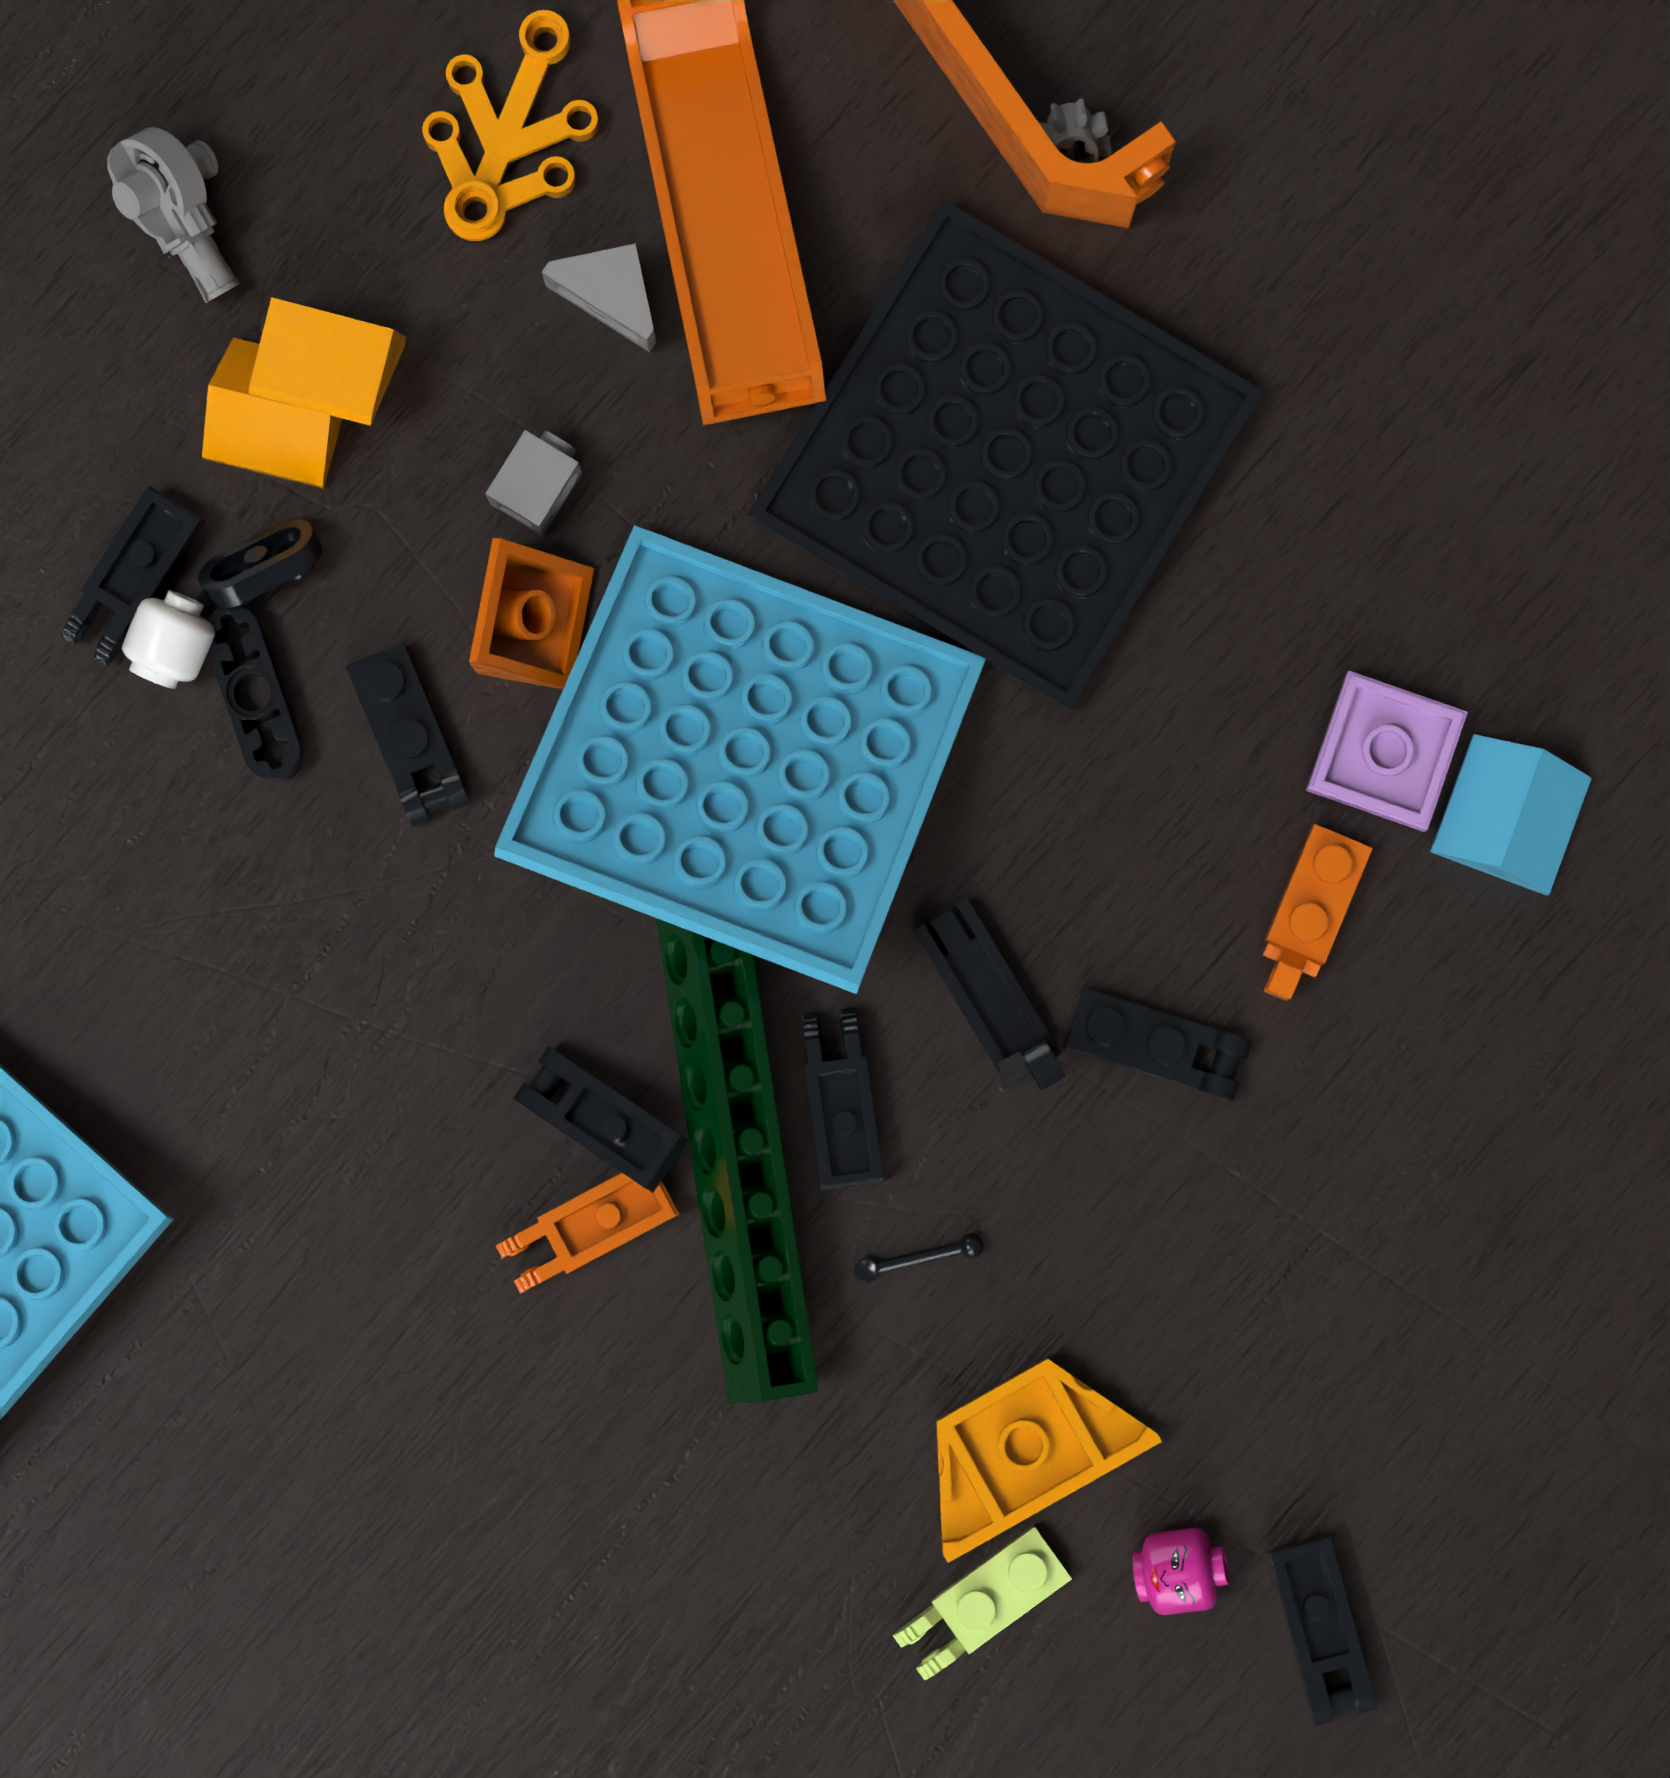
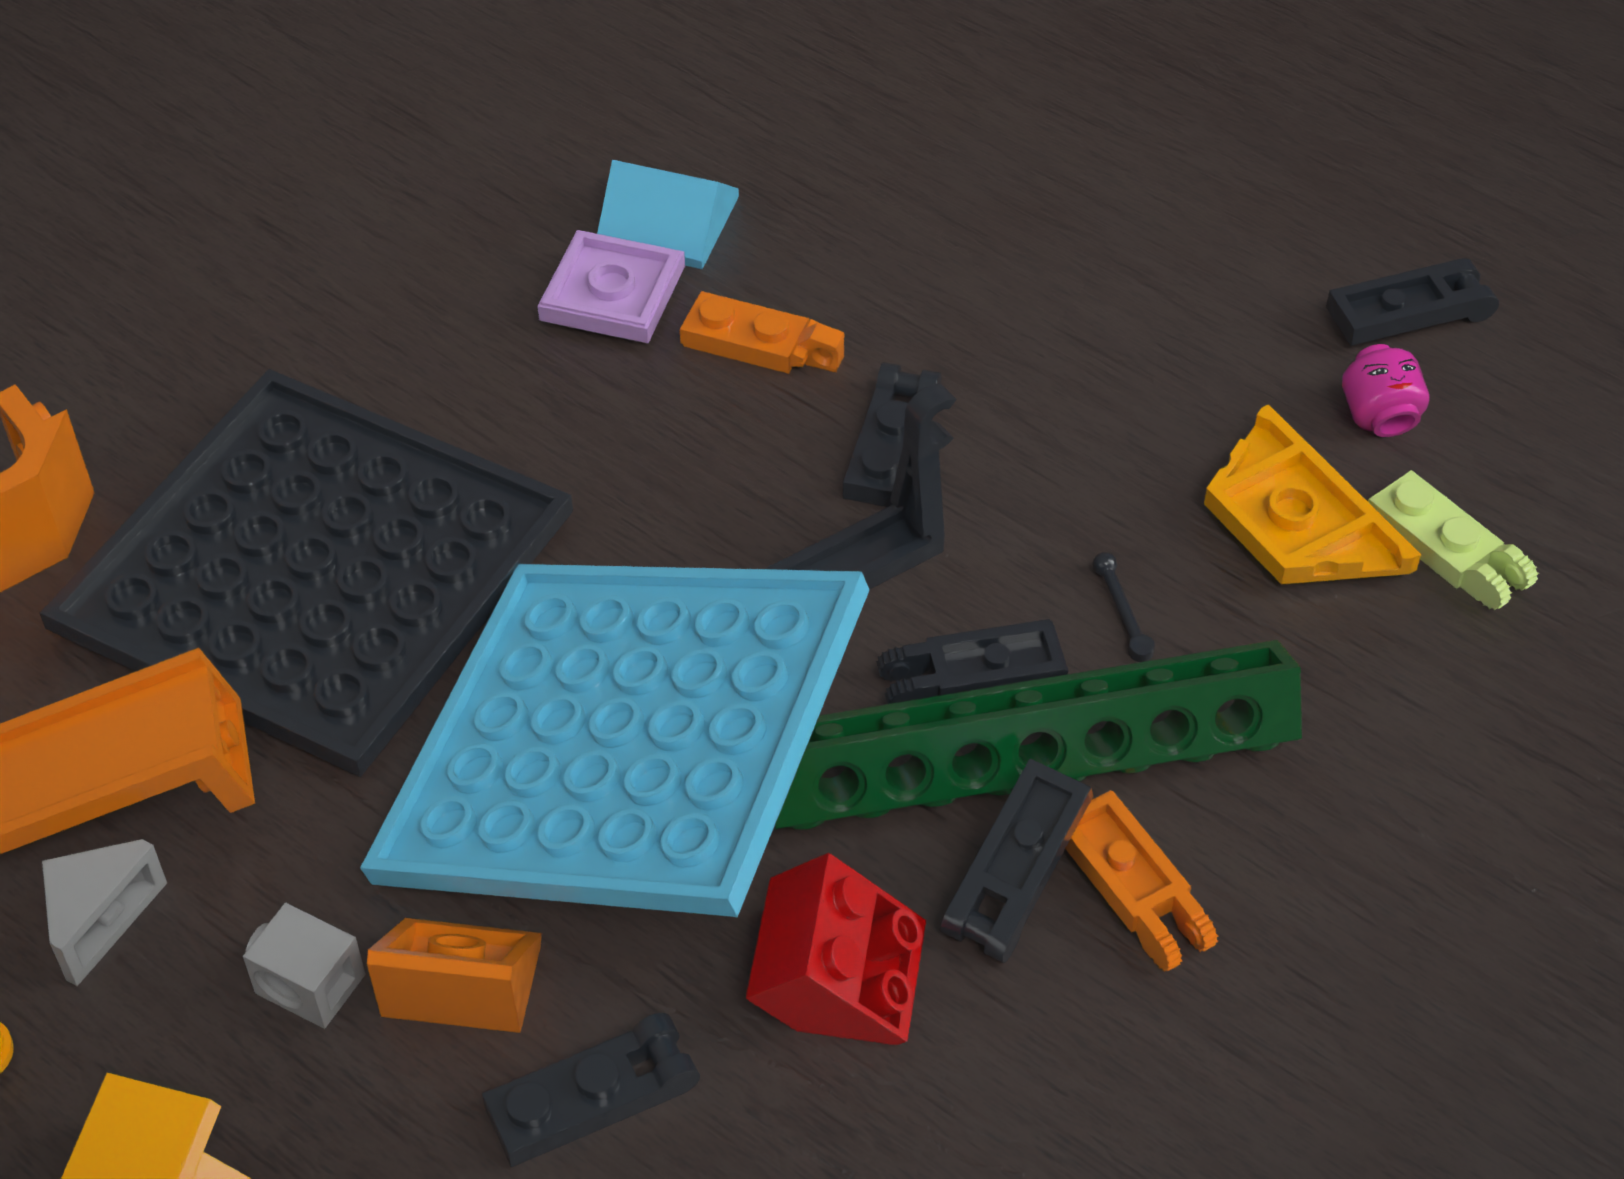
camera: 90 degrees left, 35 degrees down
(516, 950) = (836, 954): none -> red slope

